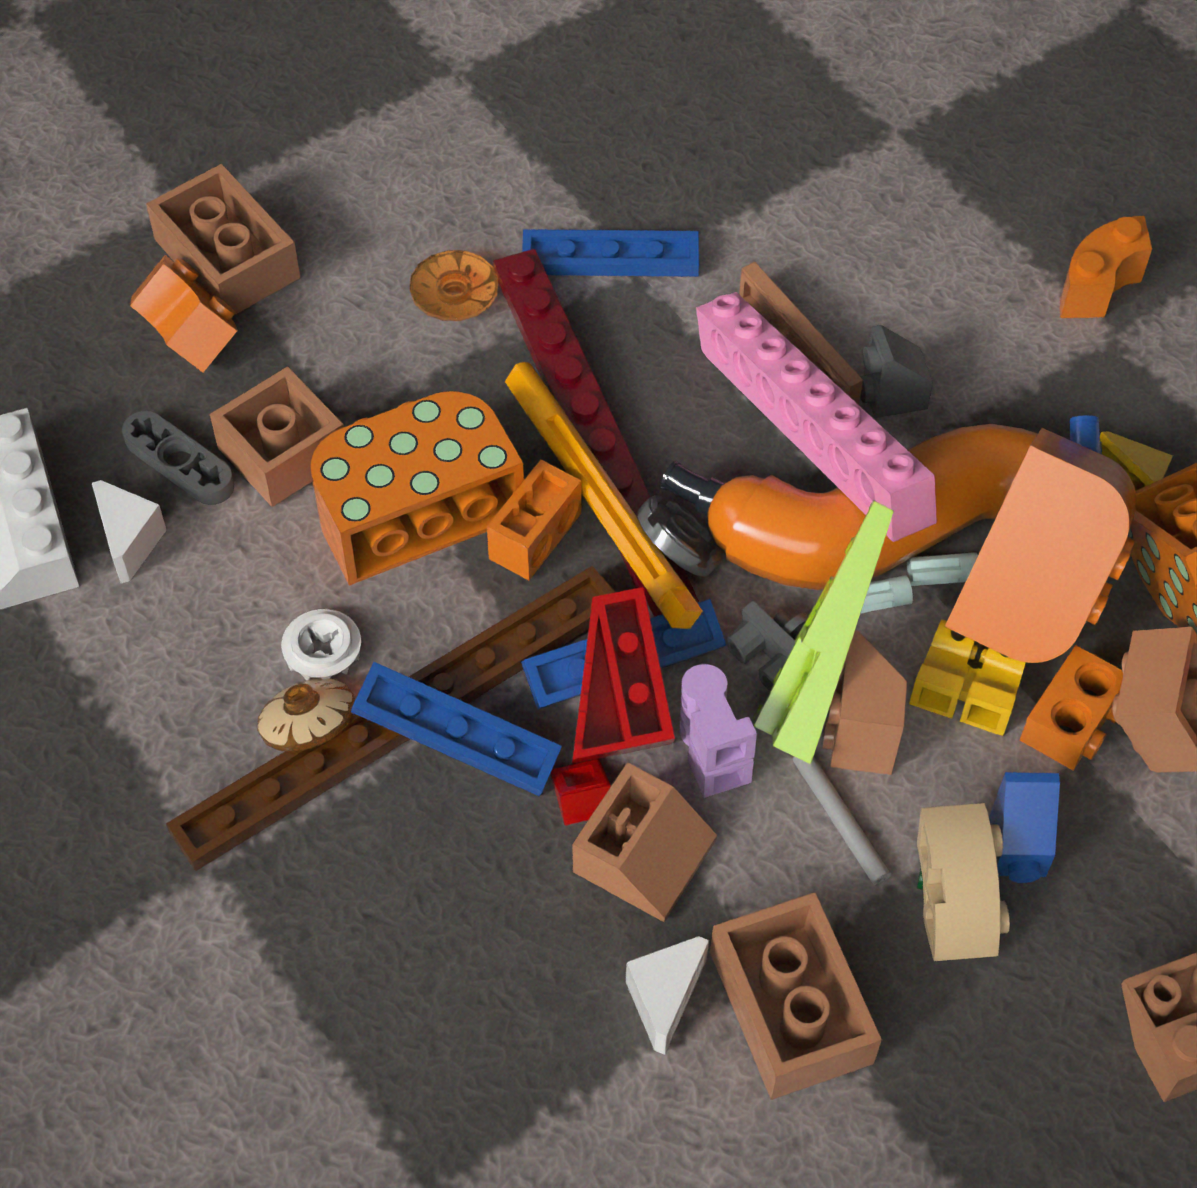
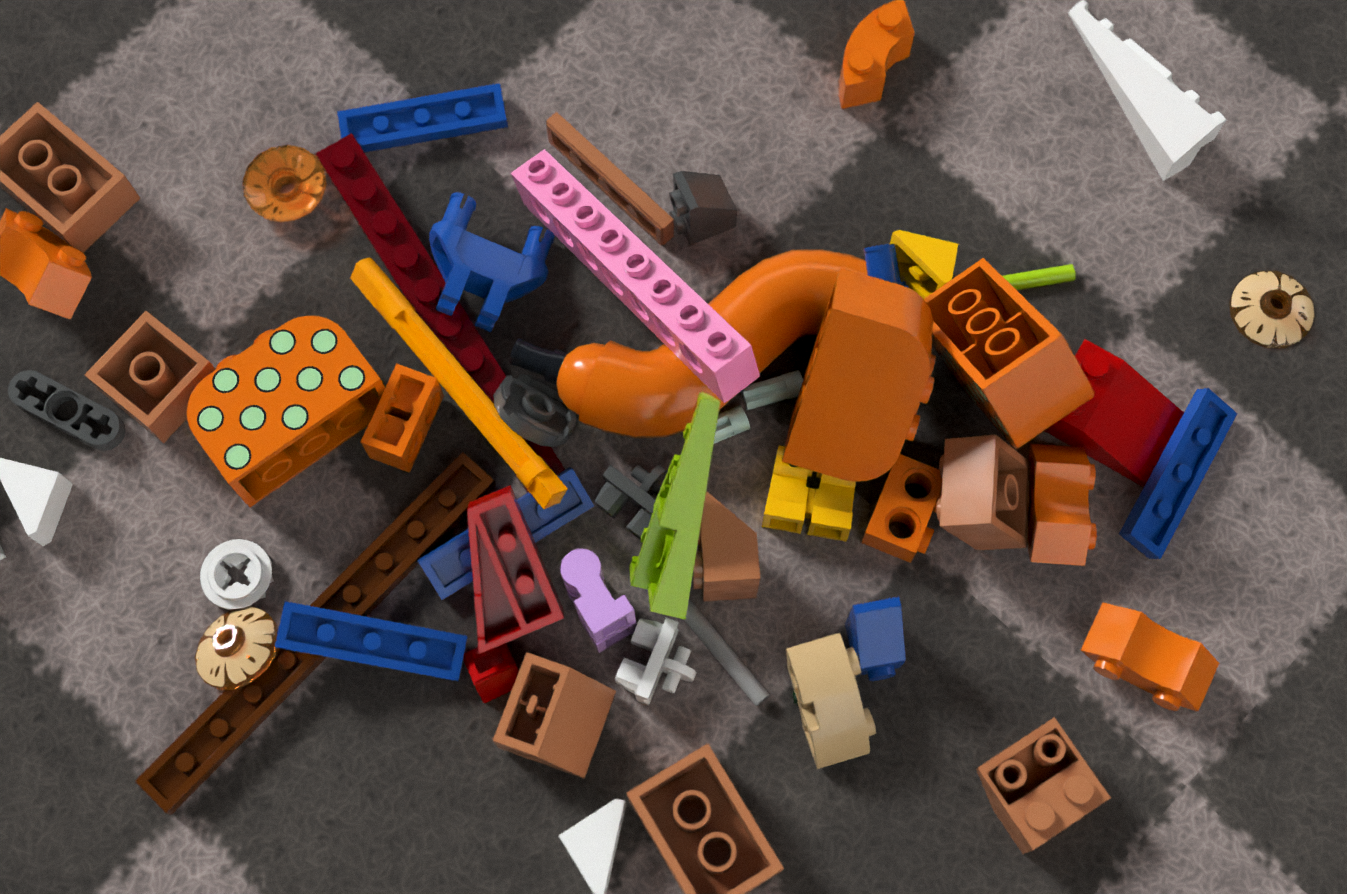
camera: 10 degrees left, 15 degrees up
(650, 391) = (483, 266): none -> blue connector
(775, 793) = (644, 679): none -> white hips

